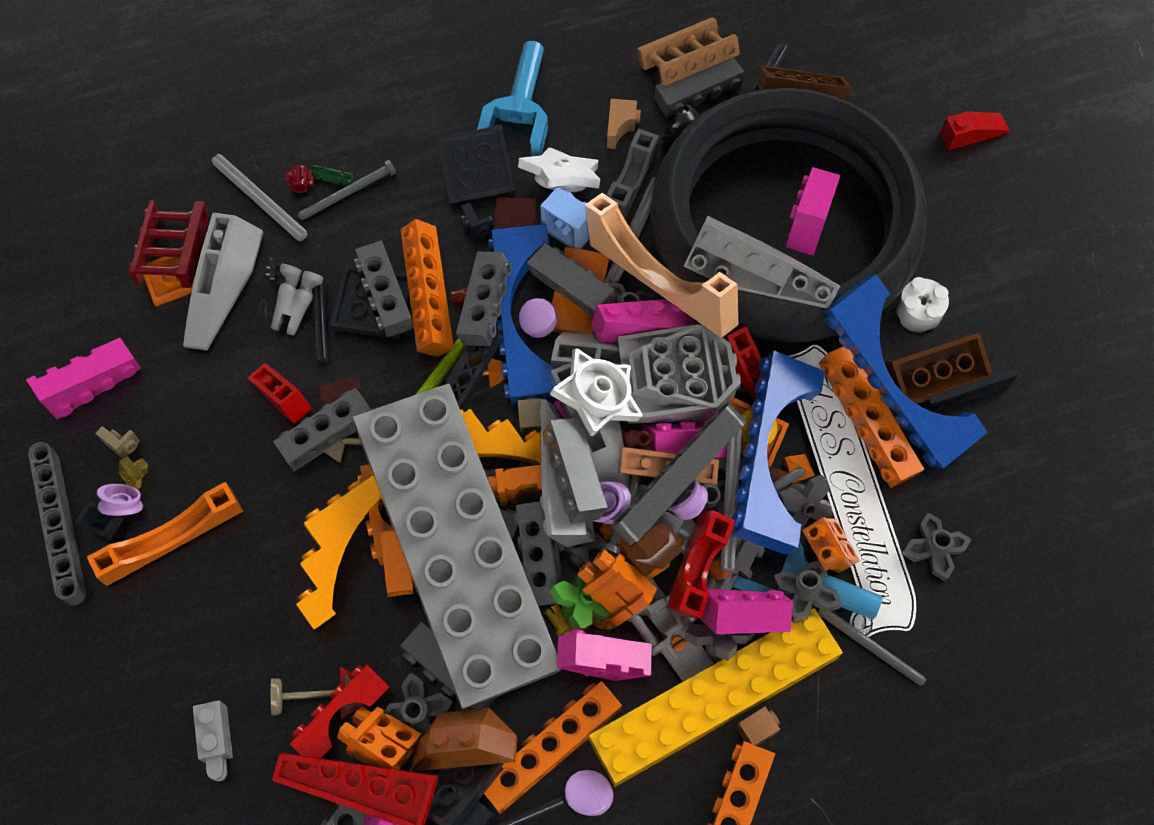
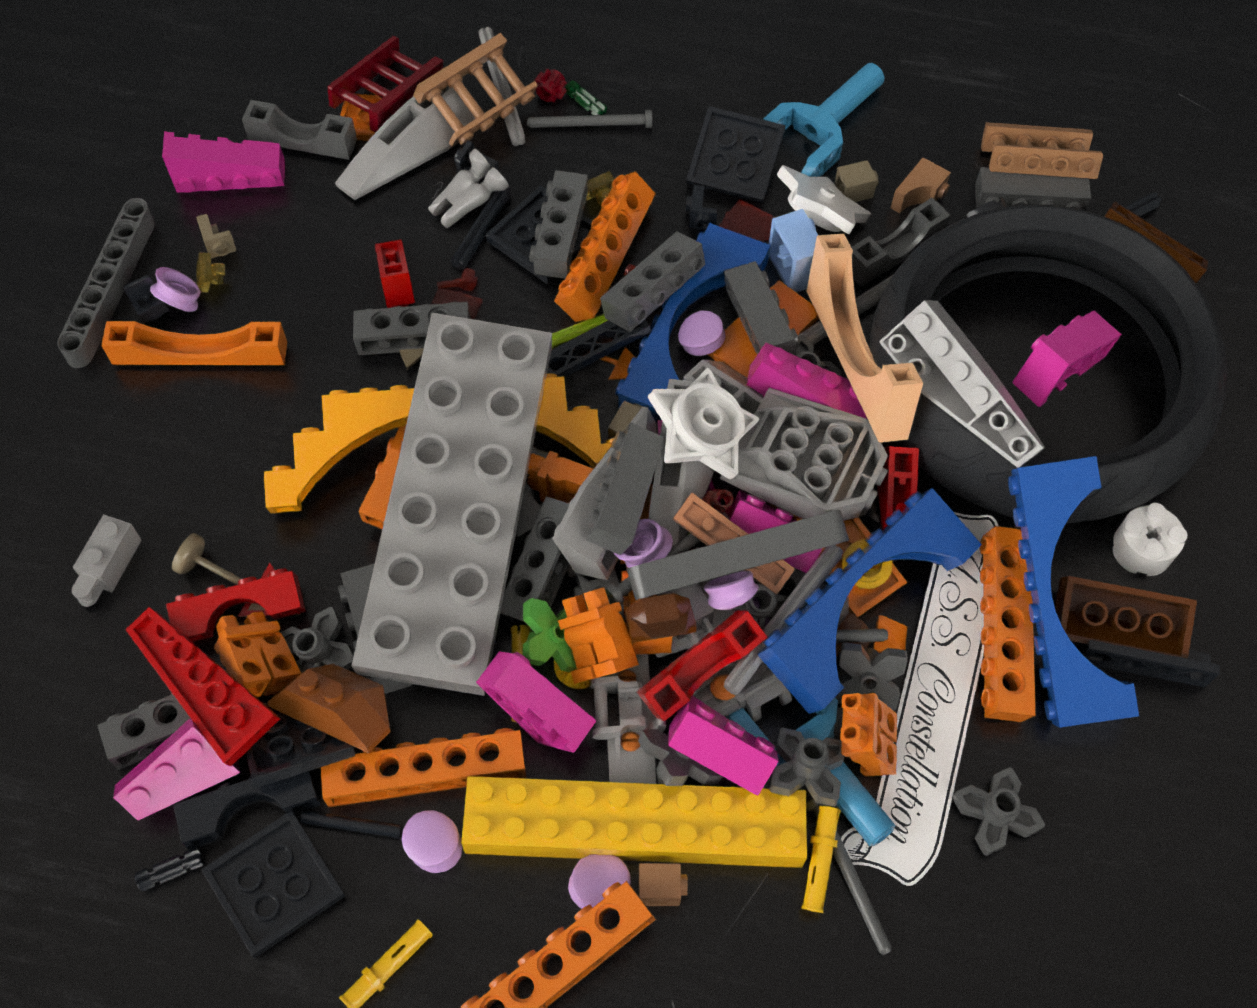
camera: 30 degrees right, 5 degrees down
(102, 326) = (331, 137): none -> dark grey arch
(228, 215) = (472, 63): none -> medium nougat fence
(338, 370) = (466, 282): none -> clear red hand
(390, 242) = (600, 187): none -> clear yellow tile
(573, 140) = (857, 181): none -> dark tan brick
(715, 751) = (595, 875): none -> lavender piece
(849, 647) = (821, 858): none -> yellow pin

